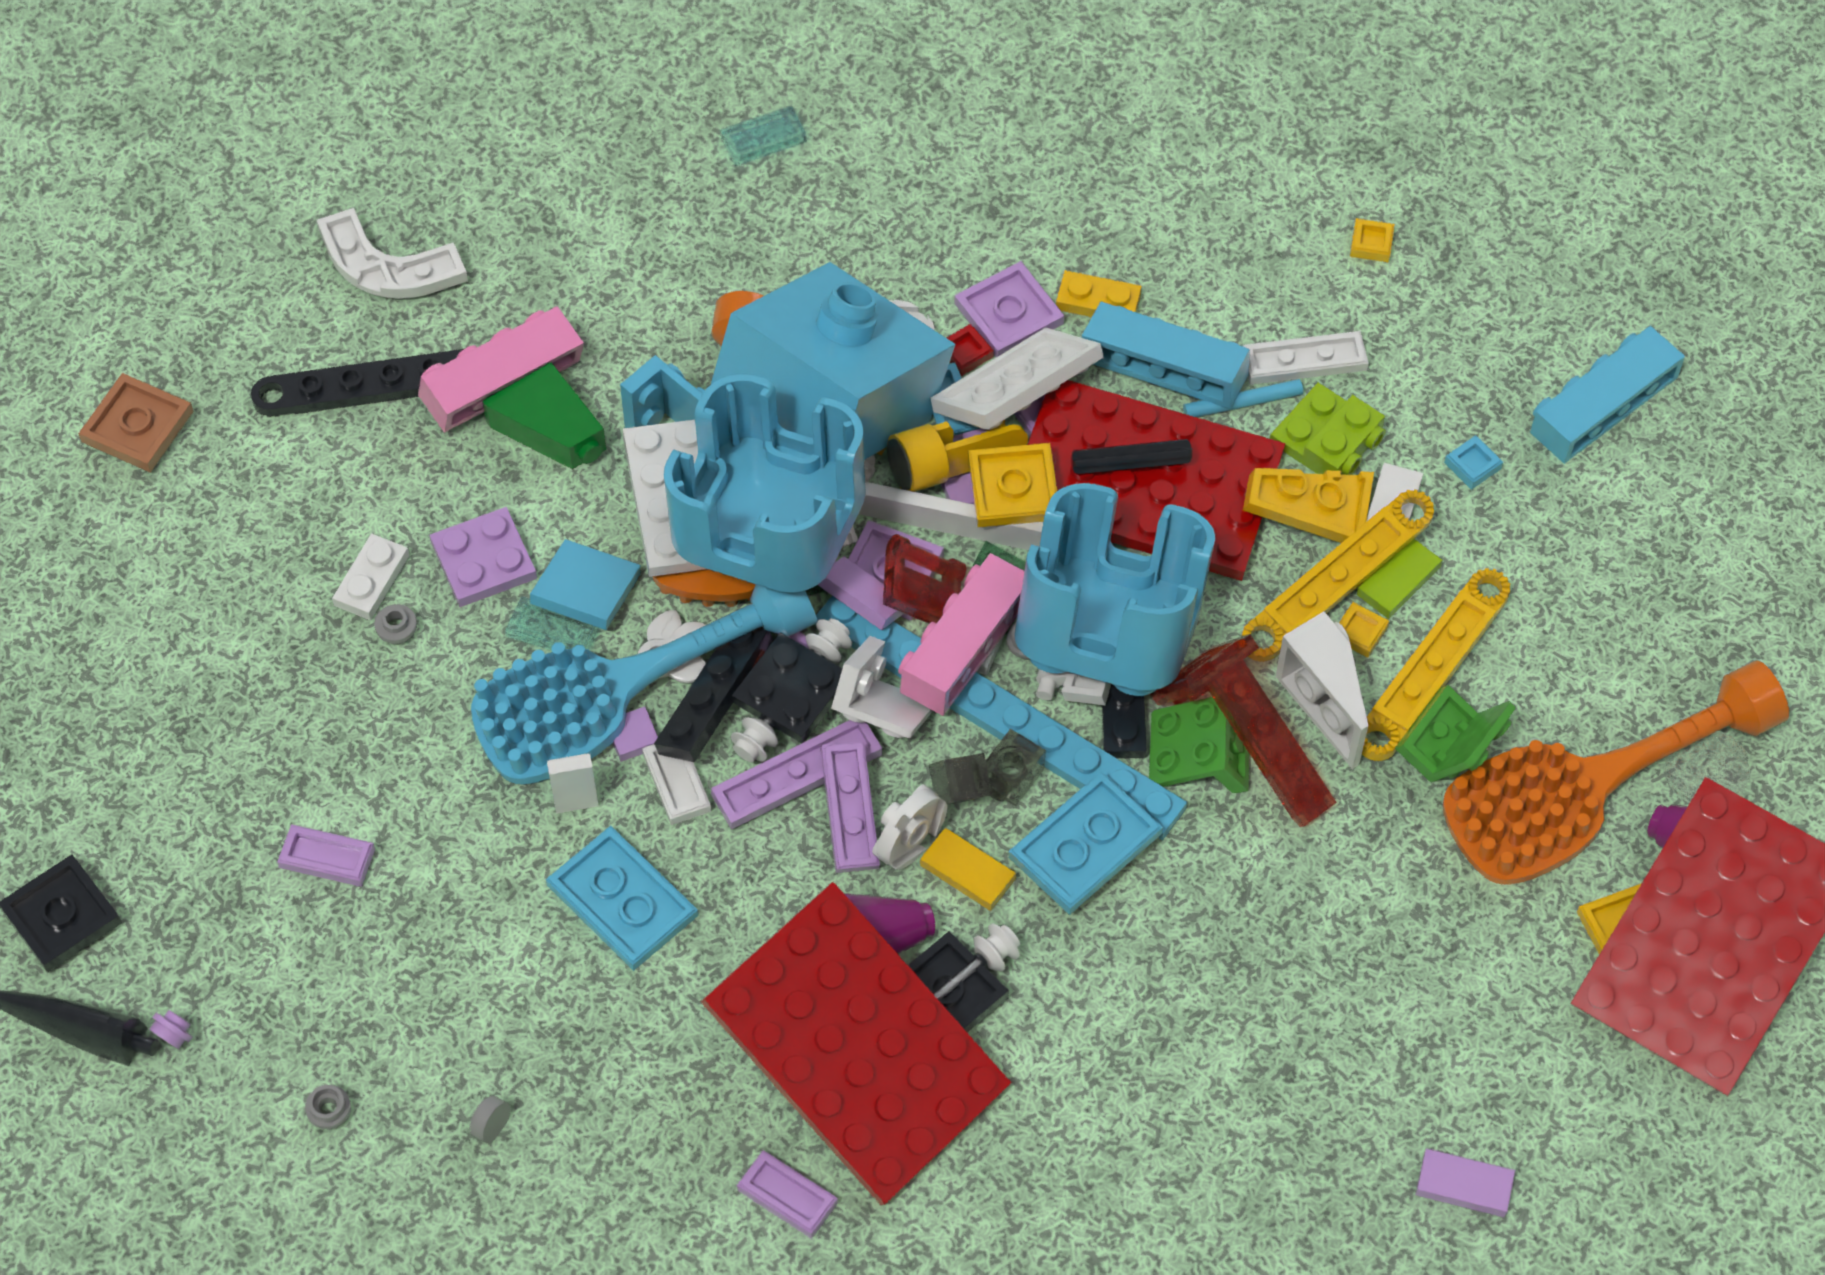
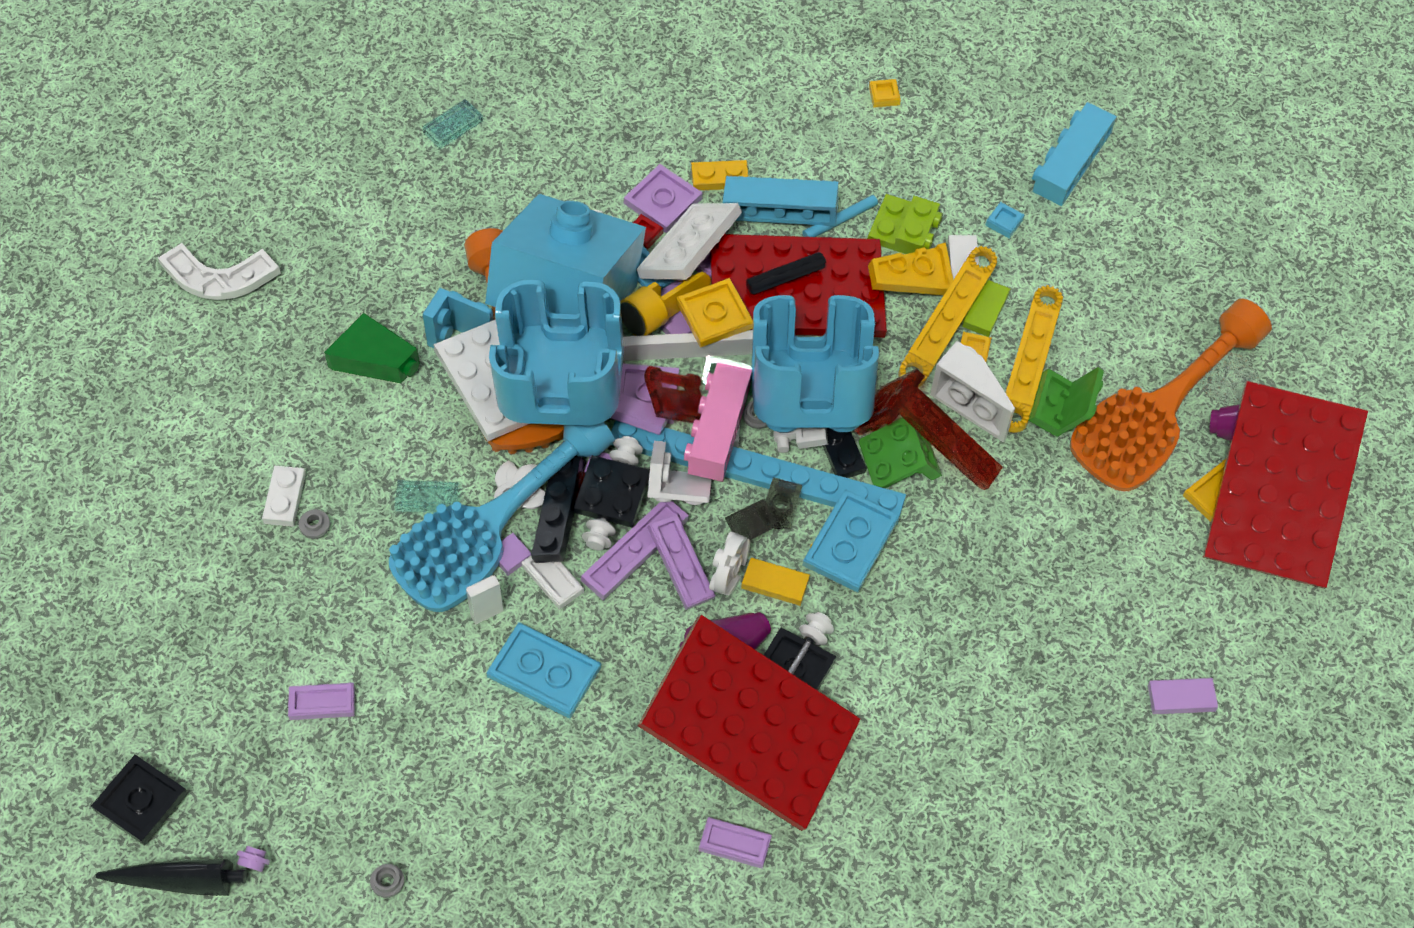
camera: 20 degrees left, 0 degrees up
(136, 422) = (74, 433): nougat plate -> none
(346, 384) = (235, 360): black plate -> none
(458, 388) = (313, 334): bright pink brick -> none
(483, 556) = (359, 460): lavender plate -> none
(489, 1119) = (508, 853): light grey tile -> none
(585, 584) = (440, 459): medium azure tile -> none
(1306, 357) = (873, 179): white tile -> none

